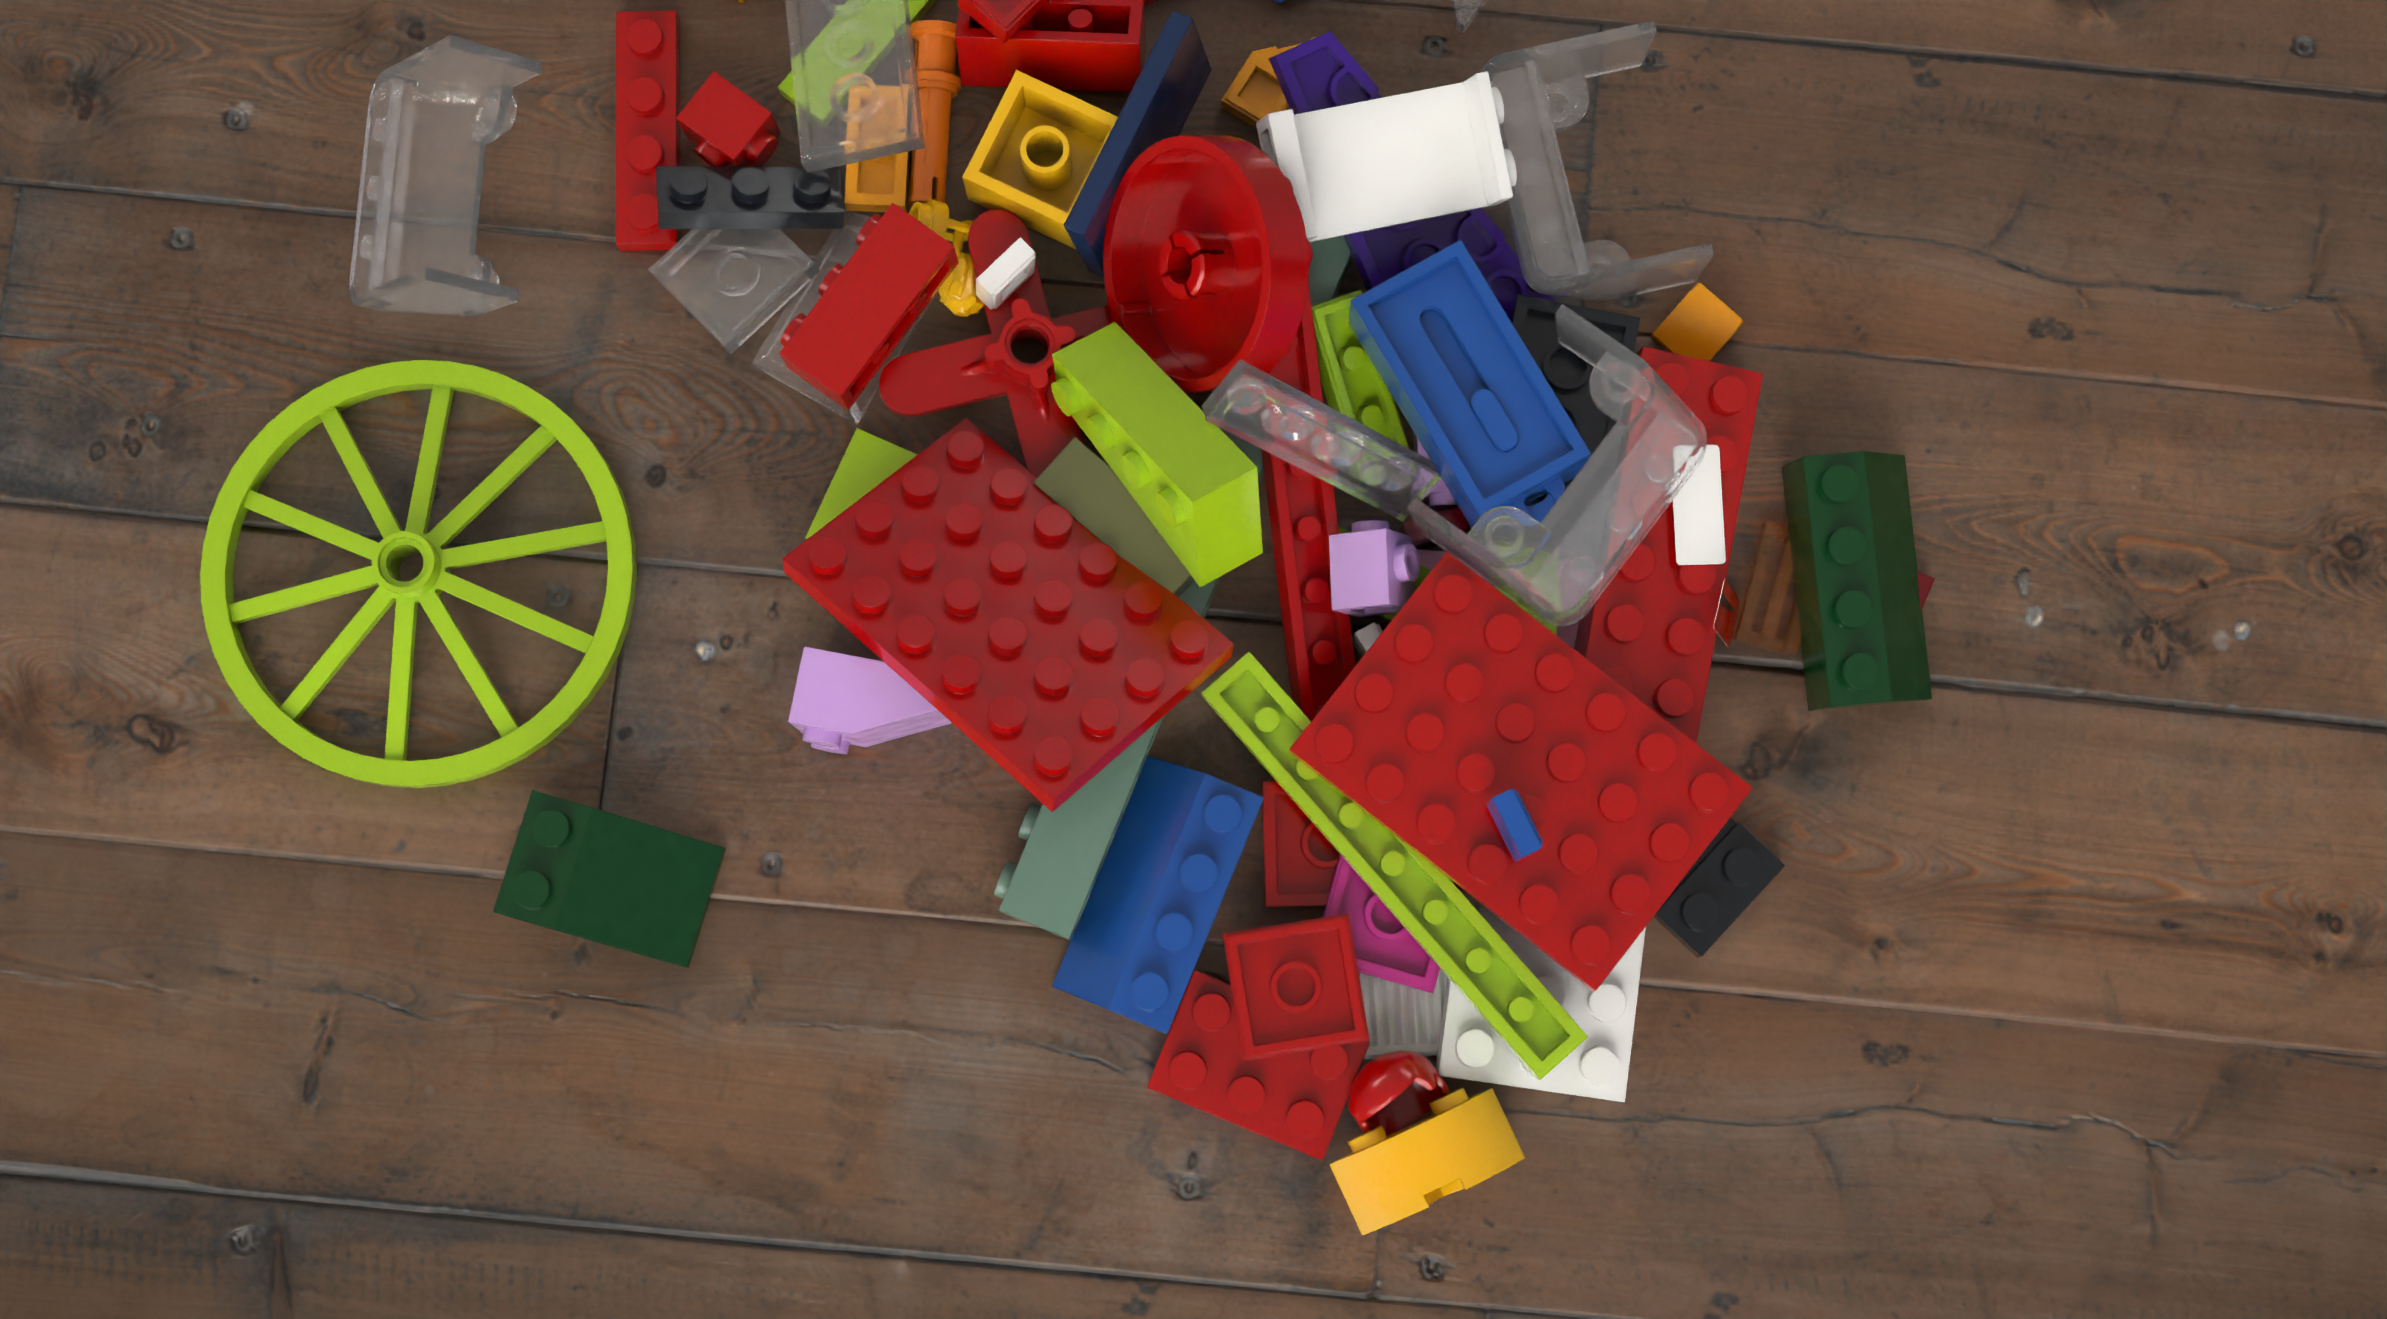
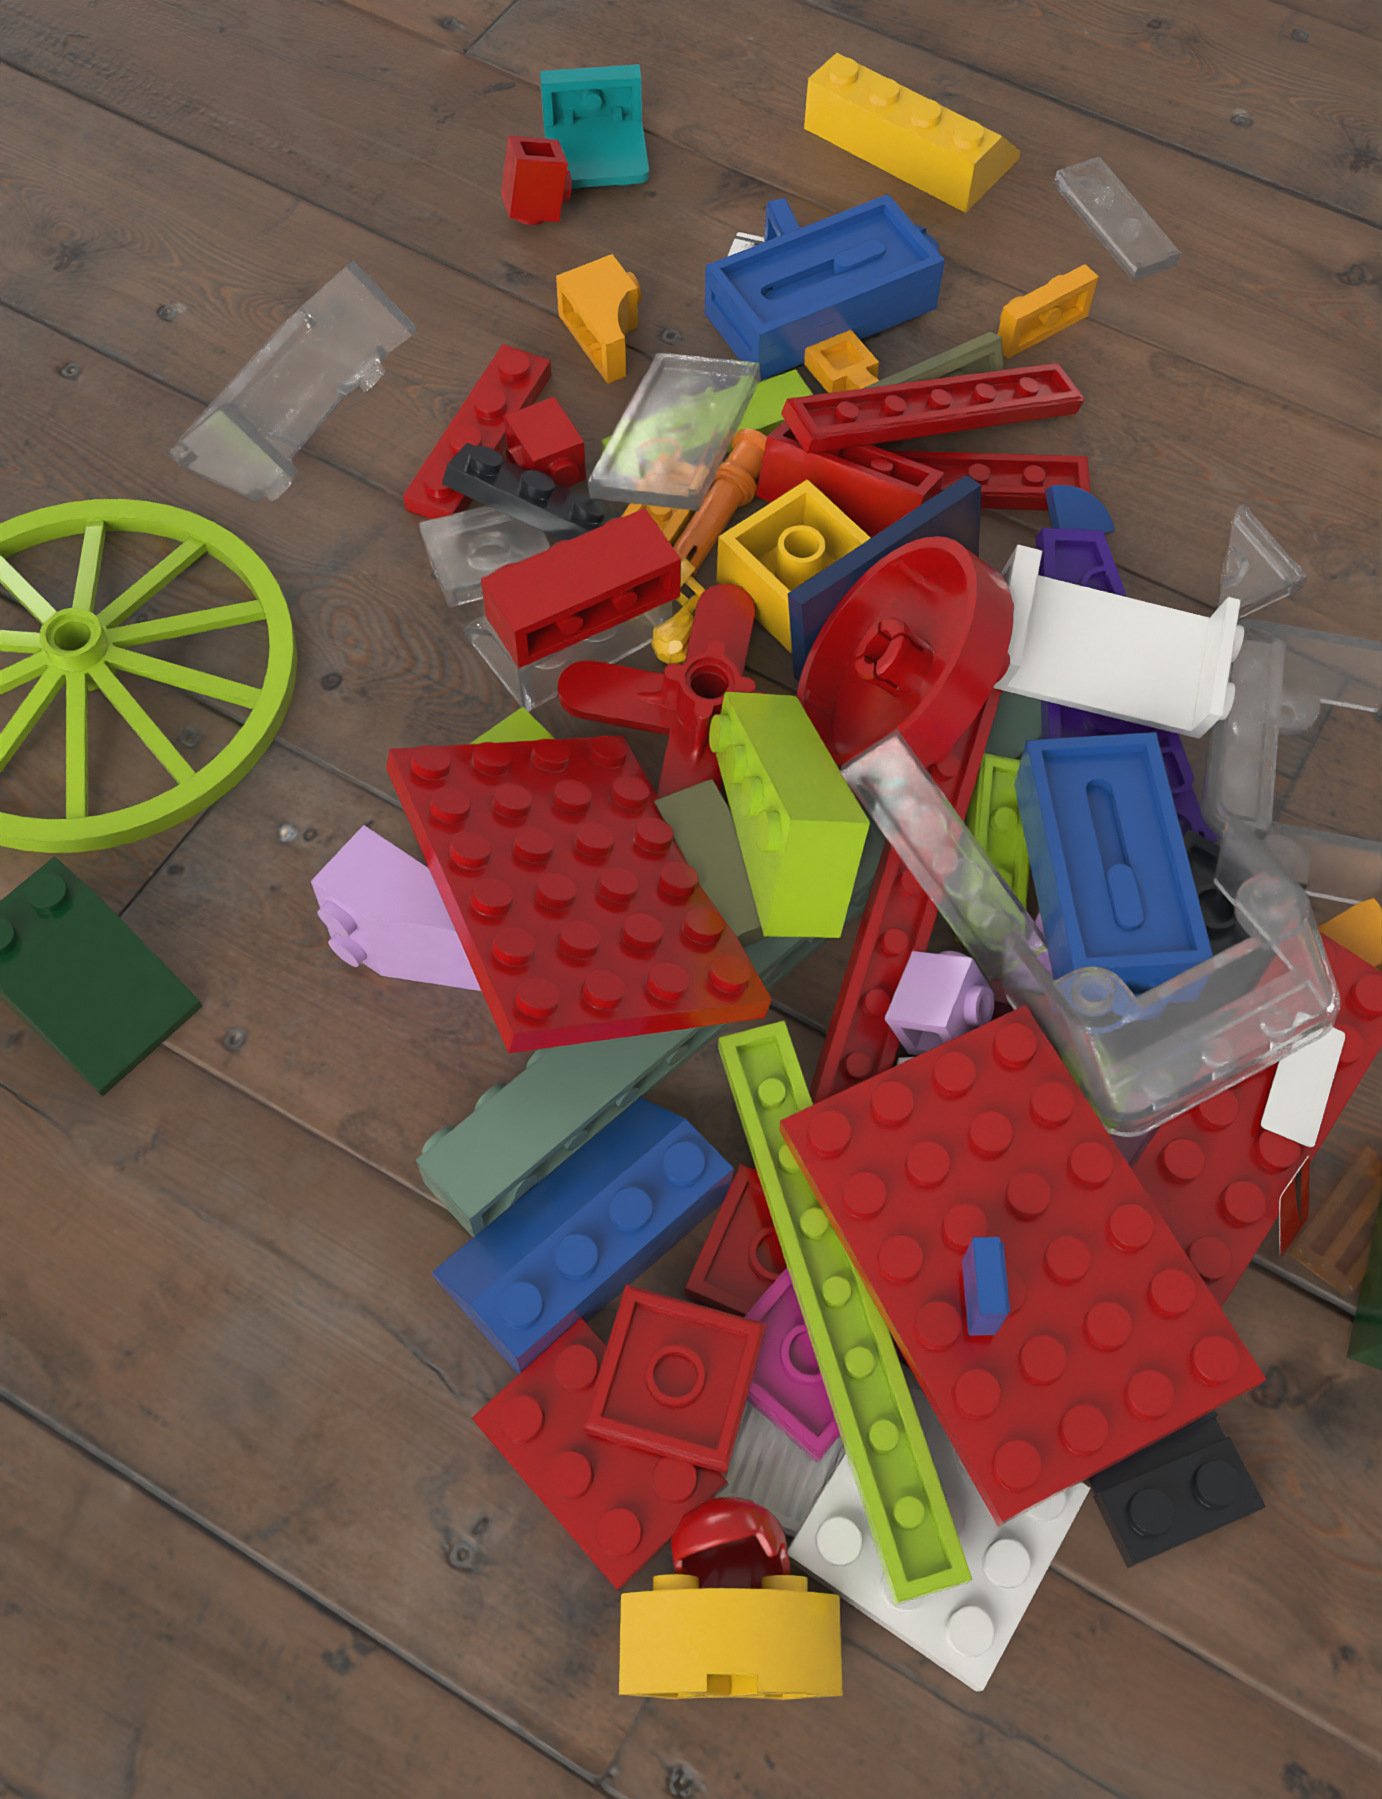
camera: 25 degrees right, 20 degrees down
(1006, 274) = (720, 620): white tile -> none

